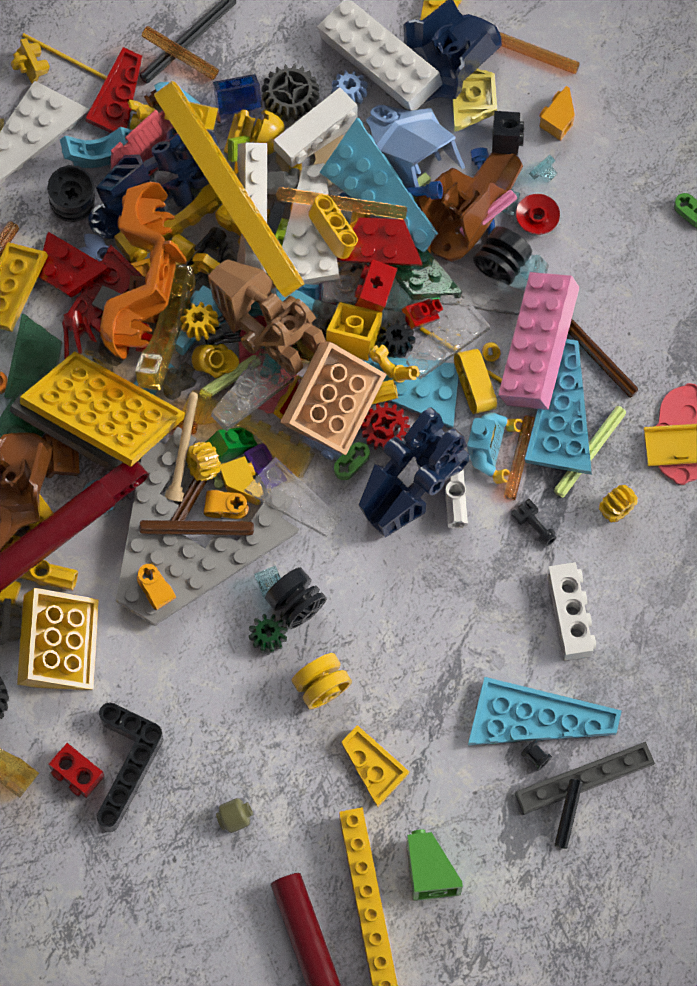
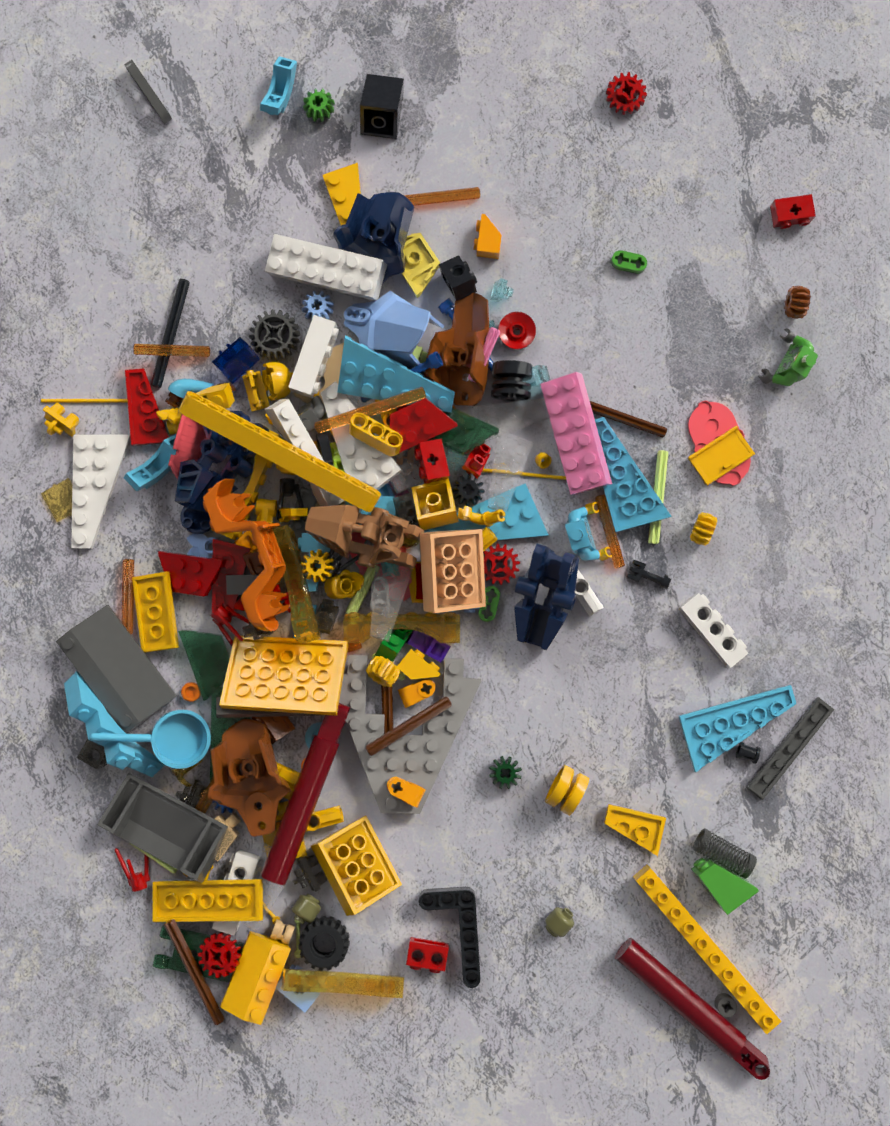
camera: 25 degrees left, 15 degrees up
(70, 182) = (147, 509): black wheel -> none
(175, 490) = (375, 705): tan piece -> none
(233, 147) = (261, 403): lime tile -> none
(266, 579) = (483, 733): clear light blue tile -> none
(289, 495) = (461, 660): clear wing -> none
(295, 597) = (512, 737): black wheel -> none
(453, 837) = (747, 865): none -> dark grey piece
(475, 381) = (545, 491): yellow beam -> none
(568, 813) = (795, 783): black axle -> none

